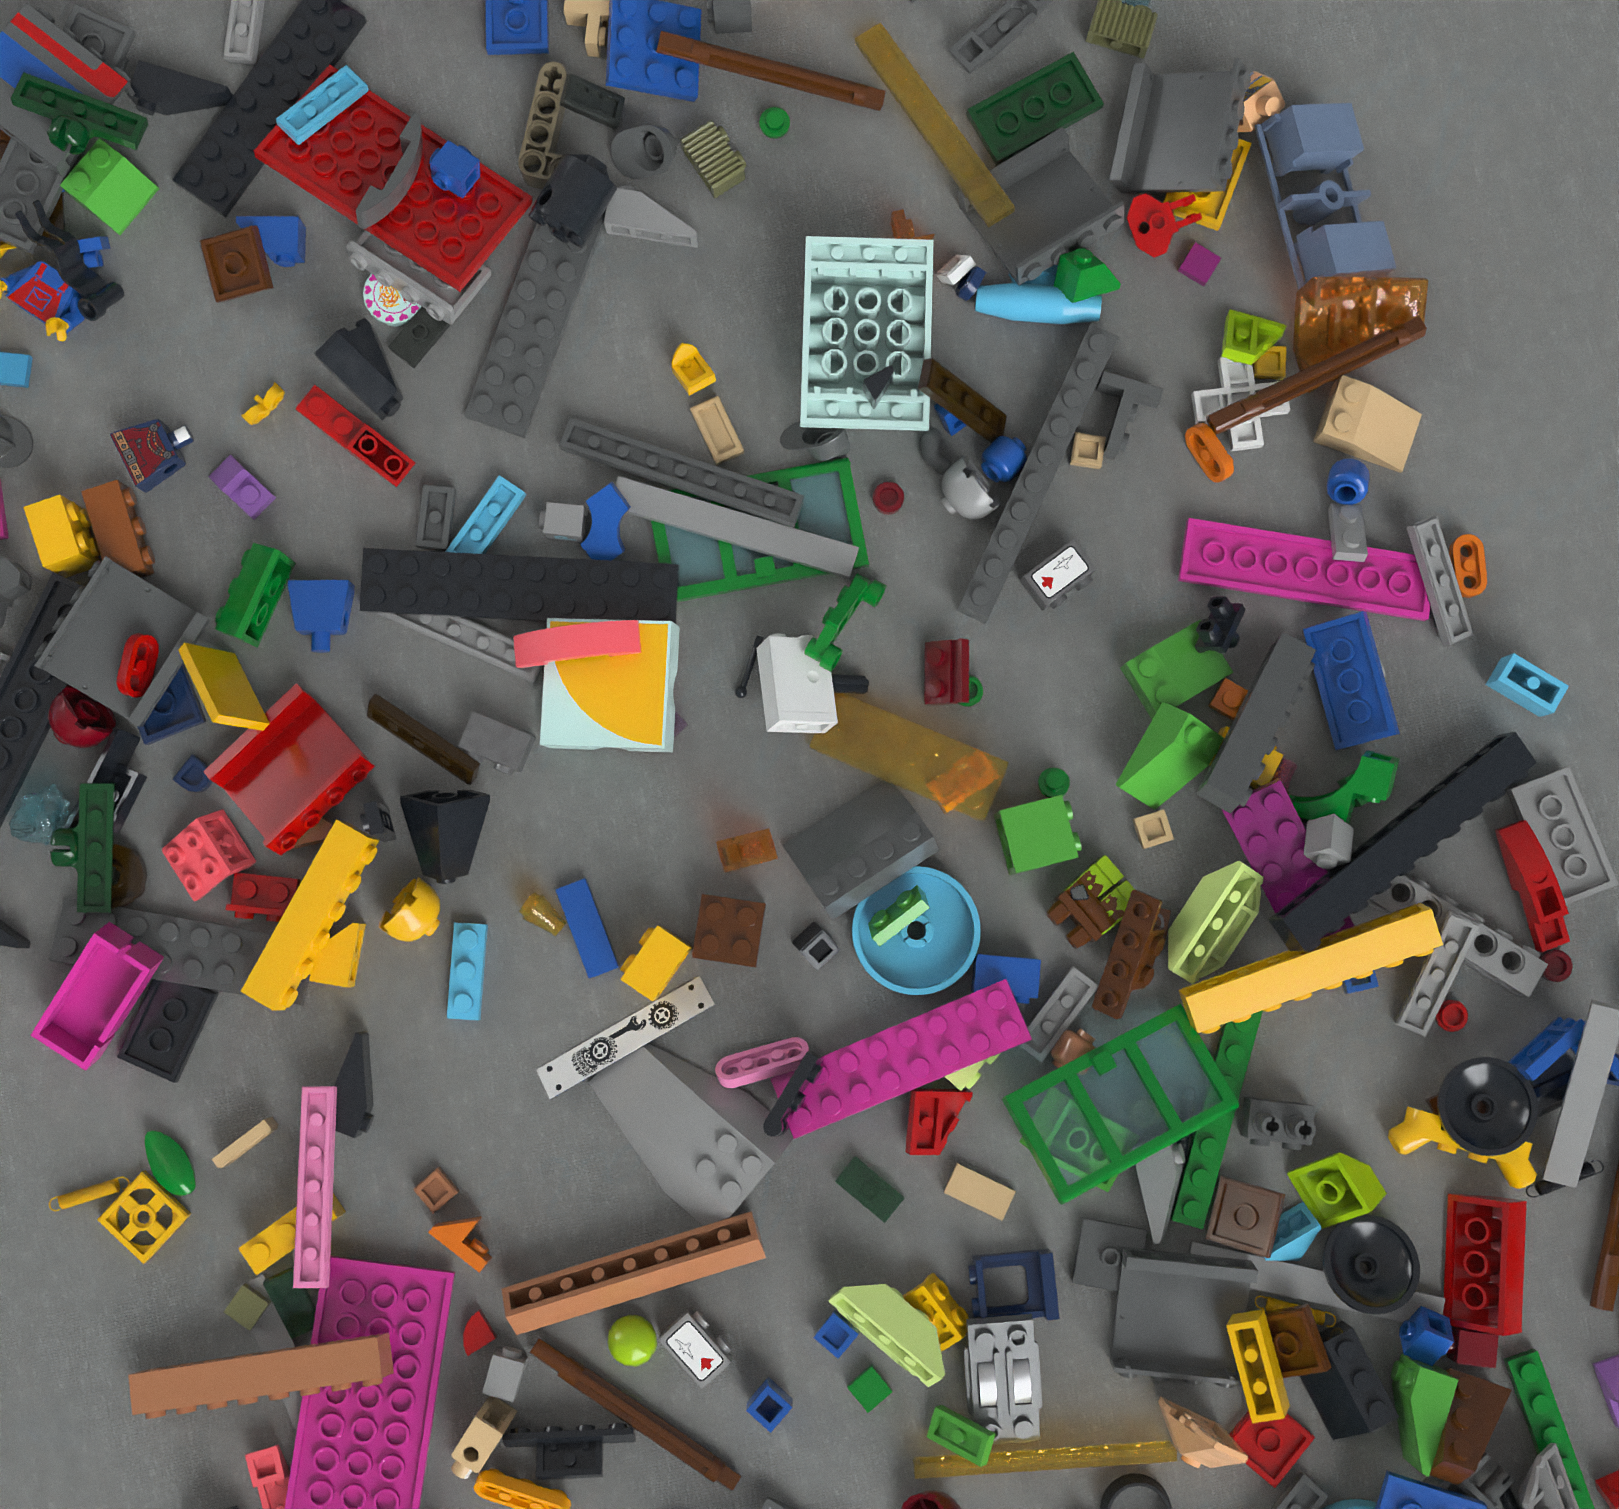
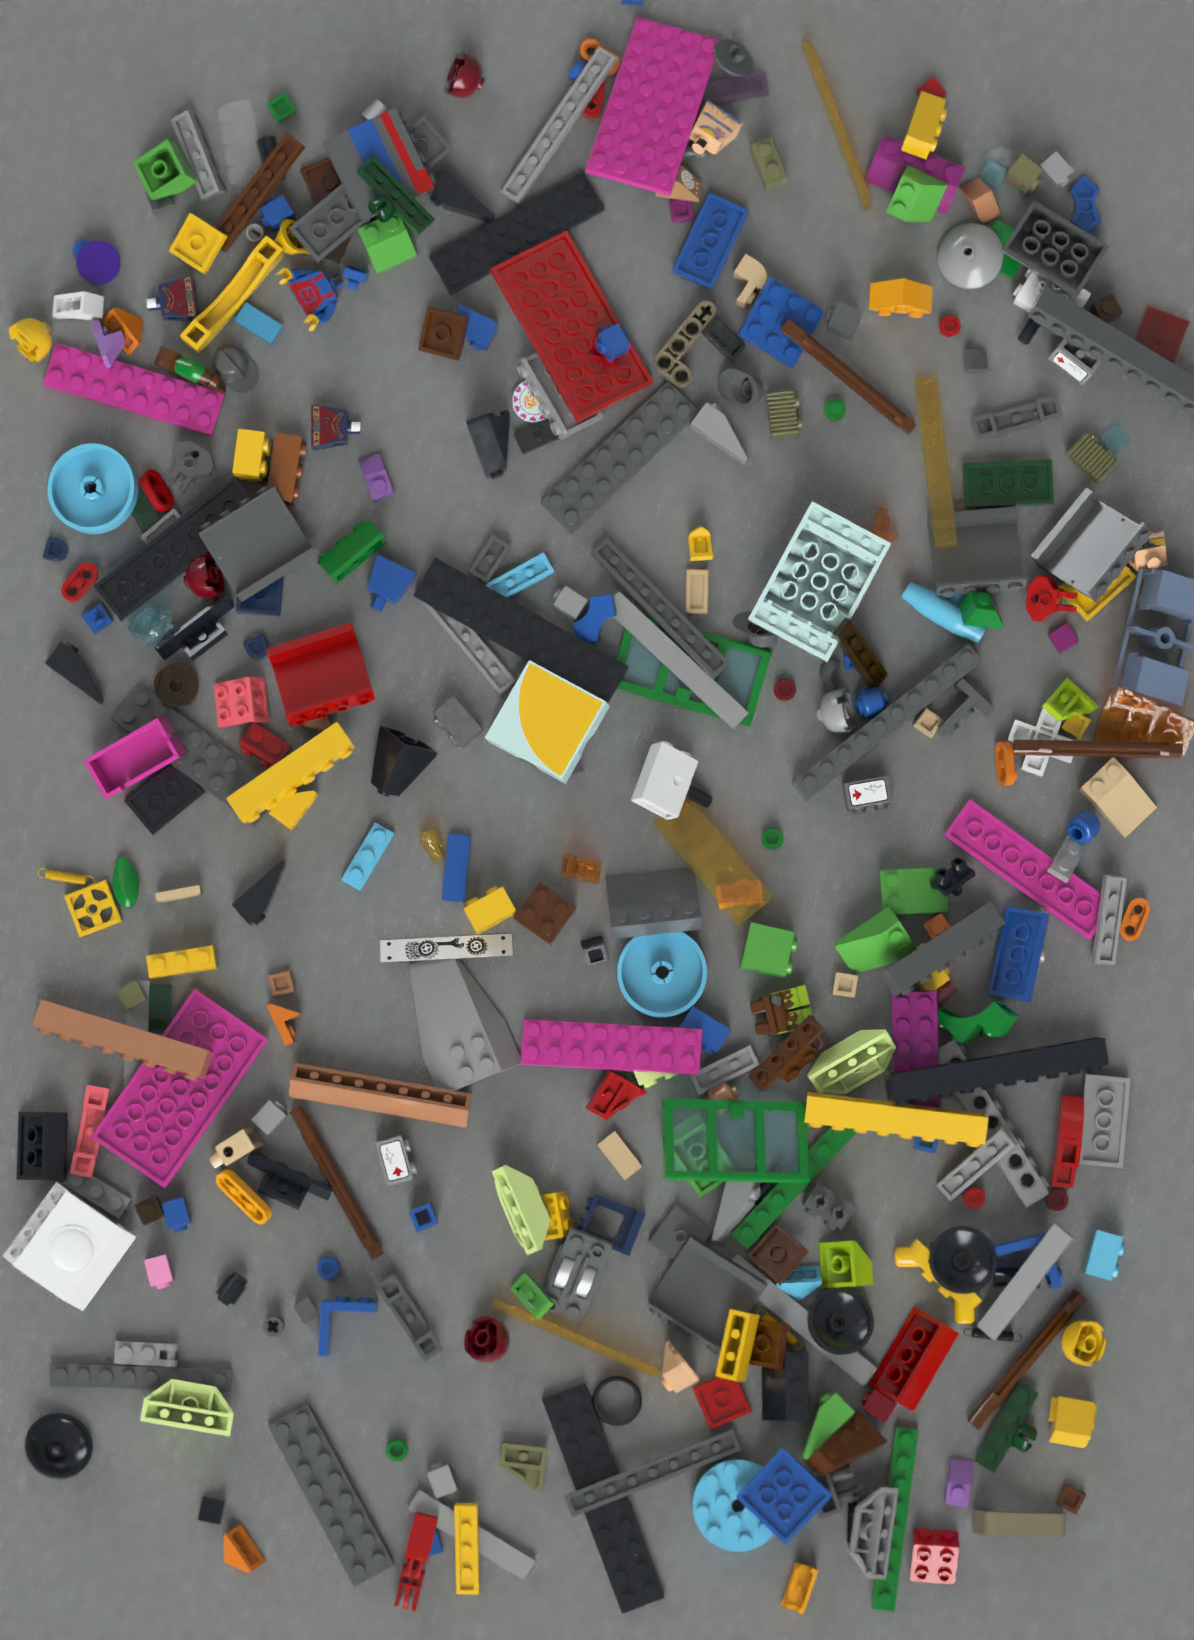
camera: 30 degrees right, 0 degrees up
(71, 268) = (339, 291): black flag -> none
(90, 847) = (174, 662): dark green plate -> none
(137, 665) = (259, 562): red plate -> none
(223, 687) = (306, 603): yellow tile -> none
(264, 406) = (415, 433): yellow piece -> none
(315, 1187) = (212, 941): bright pink tile -> none
(322, 105) = (549, 257): medium azure tile -> none
(355, 436) = (464, 482): red slope -> none
(377, 821) = (360, 735): black plate -> none
(379, 203) = (554, 343): dark grey slope -> none
(413, 912) = (353, 802): yellow cylinder -> none
(422, 739) = (412, 697): dark brown tile -> none
(477, 1333) = (263, 1084): red tile -> none
(574, 198) = (679, 401): black cylinder -> none
(576, 642) = (540, 685): coral slope -> none
(632, 1340) = (357, 1137): lime hair -> none
(741, 691) = (628, 766): black hinge -> none
(761, 1062) = (524, 1006): bright pink plate -> none
(792, 1095) = (533, 1034): black plate -> none
(836, 619) = (710, 751): green plate -> none
(836, 1334) = (486, 1197): blue plate -> none
(869, 1189) = (551, 1119): clear green plate -> none
(869, 1388) = (489, 1241): green tile -> none
(877, 384) = (806, 619): black slope -> none
(906, 909) = (663, 954): bright green plate -> none
(946, 672) = (764, 820): dark red plate -> none
(955, 269) = (902, 564): white tile -> none
(969, 283) = (906, 577): dark blue tile -> none
(1053, 782) = (797, 923): green plate -> none
(1328, 841) = (947, 1045): light grey brick -> none
(1426, 1336) = (851, 1382): blue brick -> none
(1527, 685) = (1129, 1013): medium azure brick -> none

